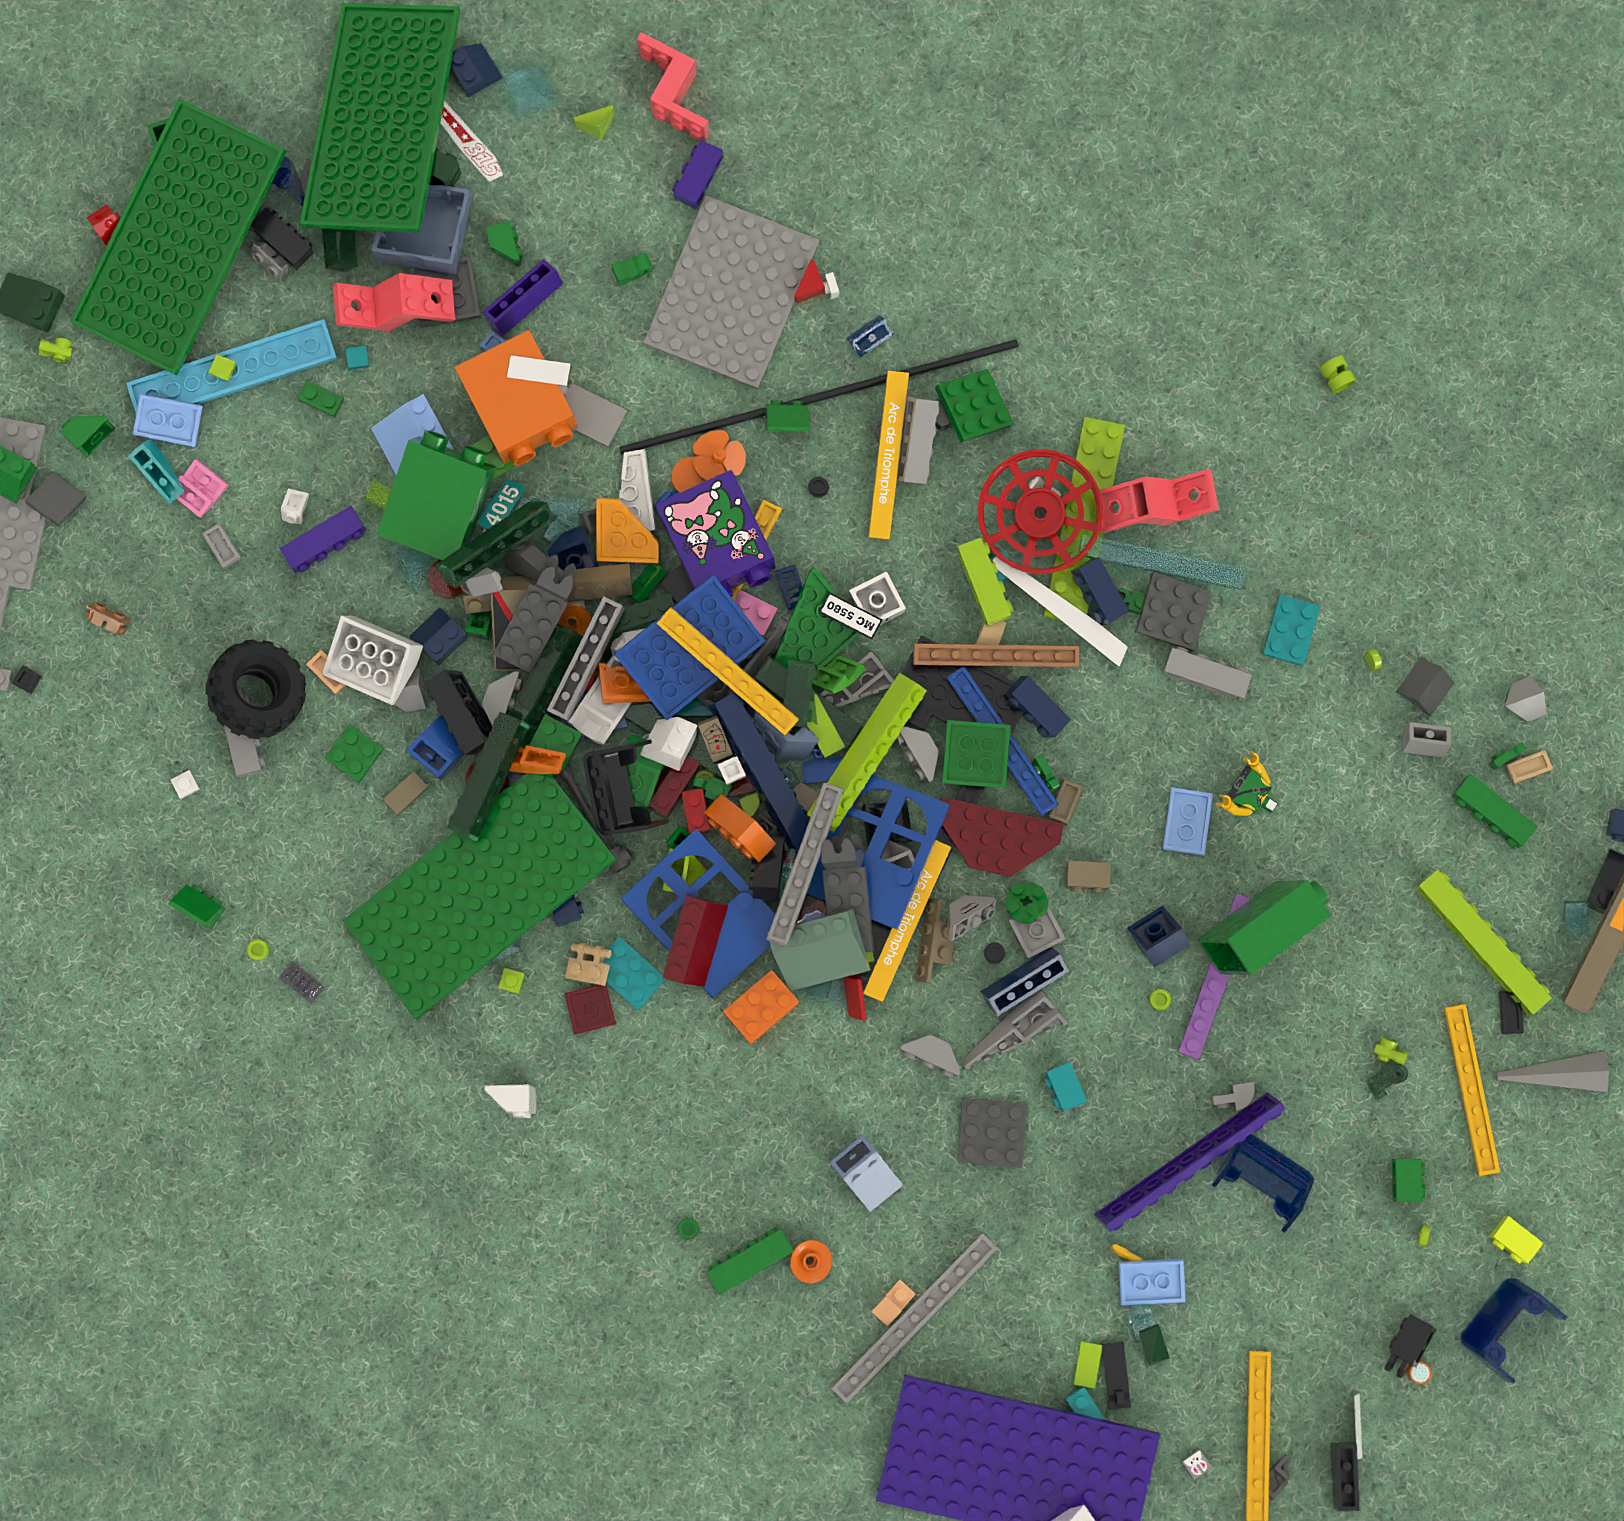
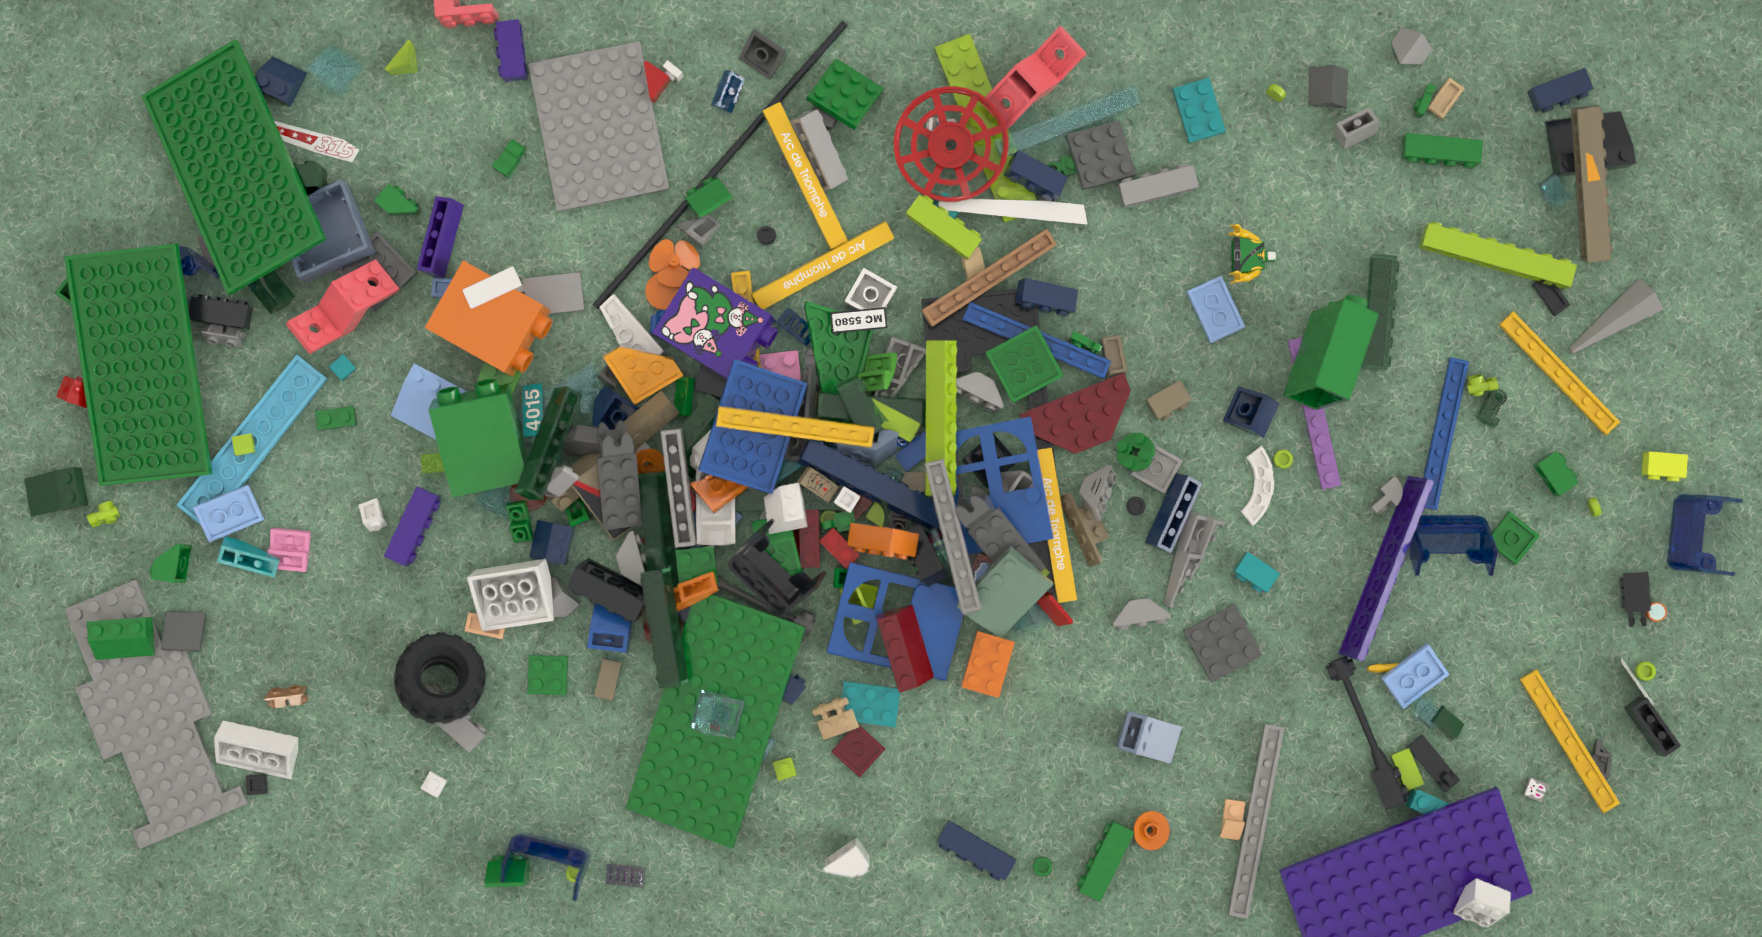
camera: 30 degrees left, 5 degrees up
(47, 647) = (256, 749): none -> white slope
(221, 546) = (337, 582): light grey plate -> none
(247, 911) = (548, 849): none -> clear blue windscreen
(423, 598) = (520, 521): none -> green slope
(483, 886) = (717, 714): none -> clear light blue slope
(636, 1171) = (976, 850): none -> dark blue brick
(762, 442) = (700, 229): none -> light grey slope
(851, 547) = (823, 265): none -> yellow tile
(923, 322) = (762, 54): none -> dark grey slope
(1064, 1356) = (1385, 775): none -> black bar
(1124, 1013) = (1262, 488): none -> white tile
(1328, 1072) = (1444, 428): none -> blue tile
(1328, 1214) = (1513, 538): none -> green tile
(1343, 916) = (1381, 300): none -> clear green brick
(1373, 1422) = (1645, 671): none -> lime tile

